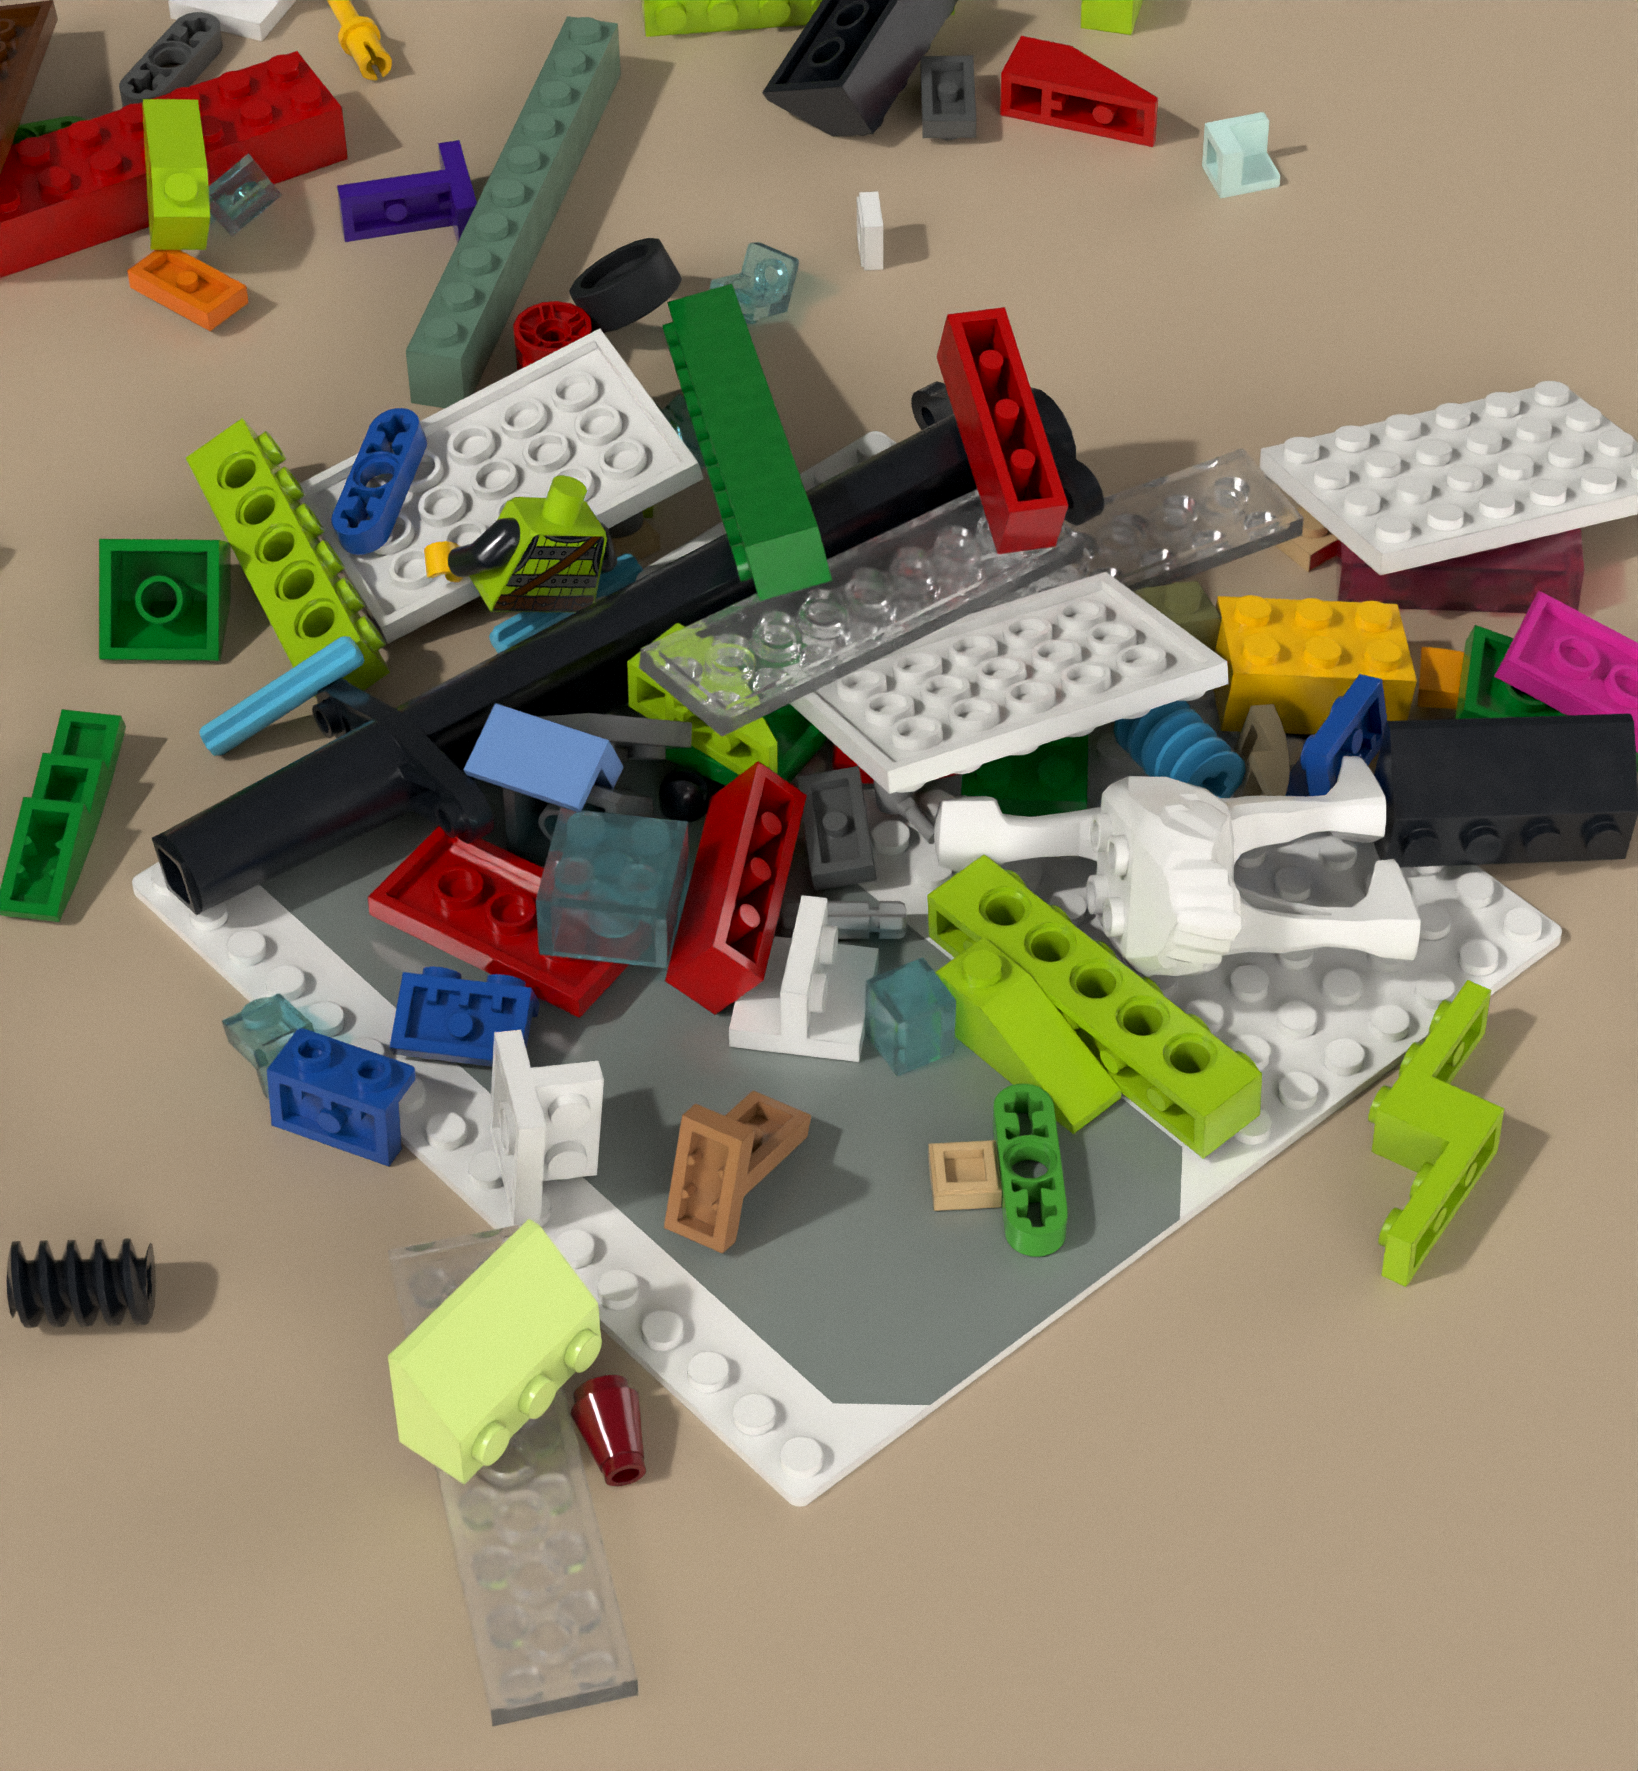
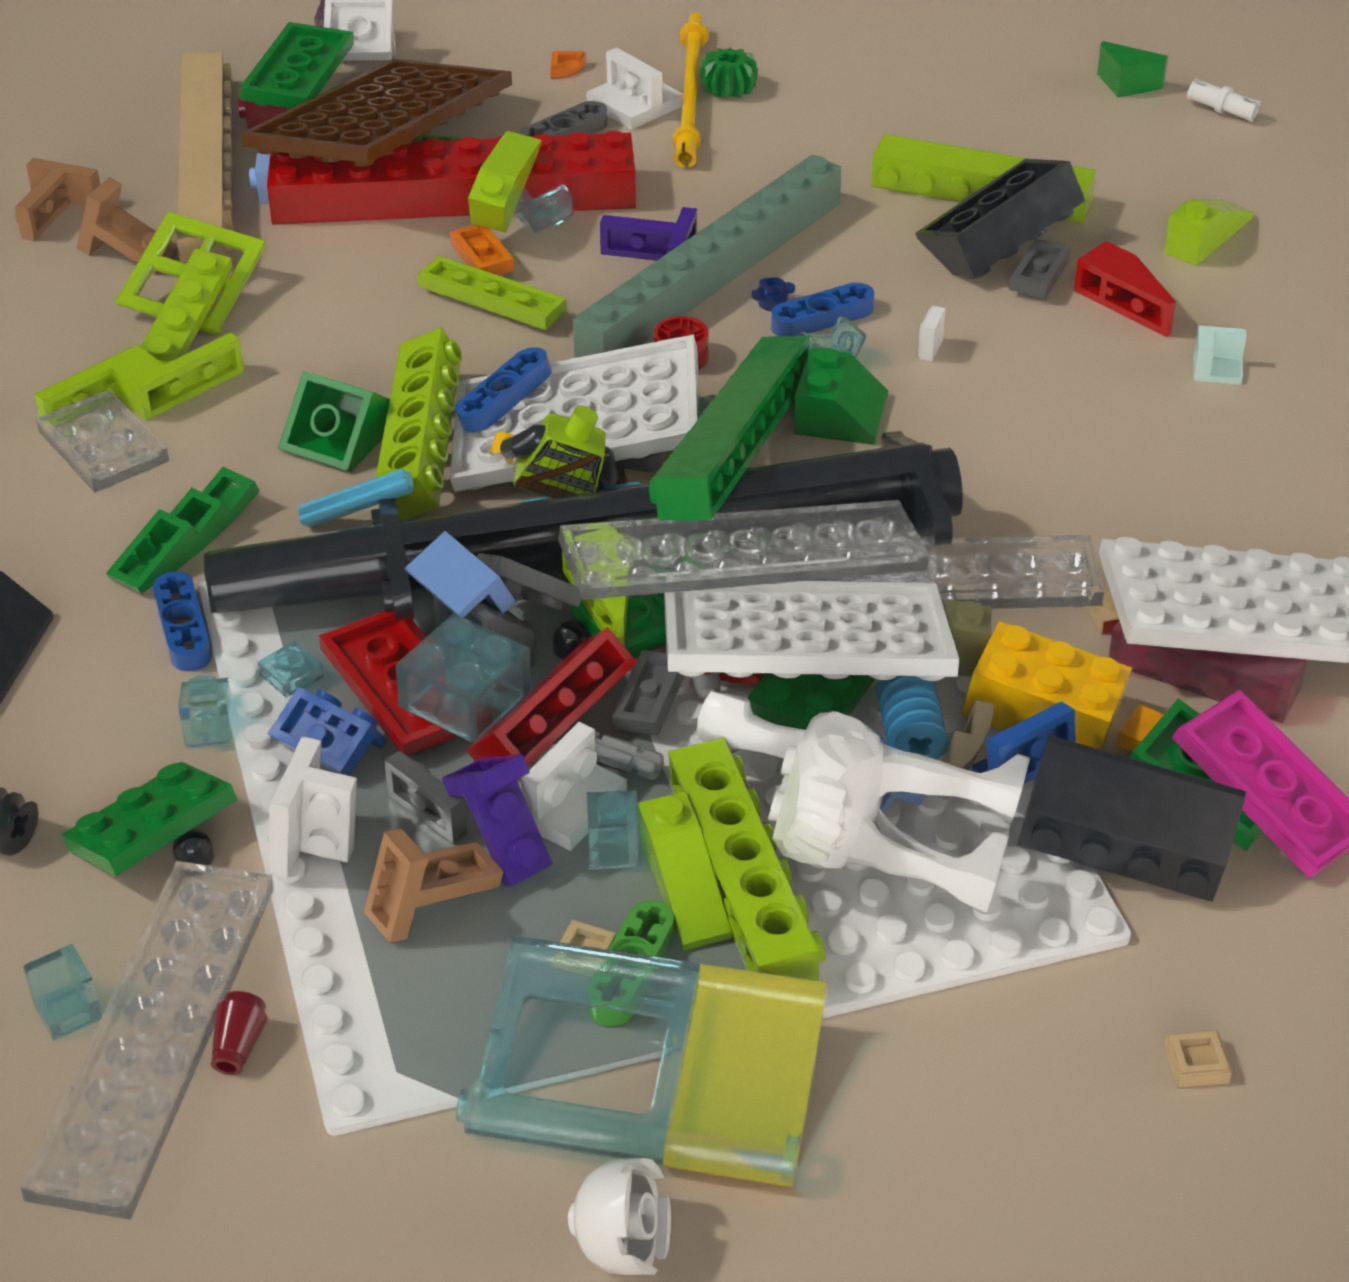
camera: 25 degrees right, 5 degrees down
(155, 962) = (178, 633): none -> blue beam
(244, 343) = (492, 292): none -> lime plate
(308, 1210) = (148, 817): none -> green plate
(339, 1095) = (217, 745): blue bracket -> none
(349, 954) = (290, 668): none -> clear light blue plate
(364, 1463) = (62, 991): none -> clear light blue panel
(390, 1228) = (193, 848): none -> black hinge
(493, 1354) = (170, 945): yellowish green slope -> none
(621, 228) = (772, 292): none -> clear blue plate
(626, 284) = (744, 320): black tyre -> none
(652, 1056) = (425, 796): none -> dark grey plate
(728, 215) = (802, 314): none -> blue beam
(772, 1033) = (502, 814): none -> dark purple bracket
(810, 357) = (838, 398): none -> green slope
(1001, 431) = (893, 462): red brick -> none
(1217, 1464) = (622, 1217): none -> white cylinder
(1223, 1246) = (727, 1077): none -> clear light blue piece
(1434, 1131) = (939, 1042): lime bracket -> none

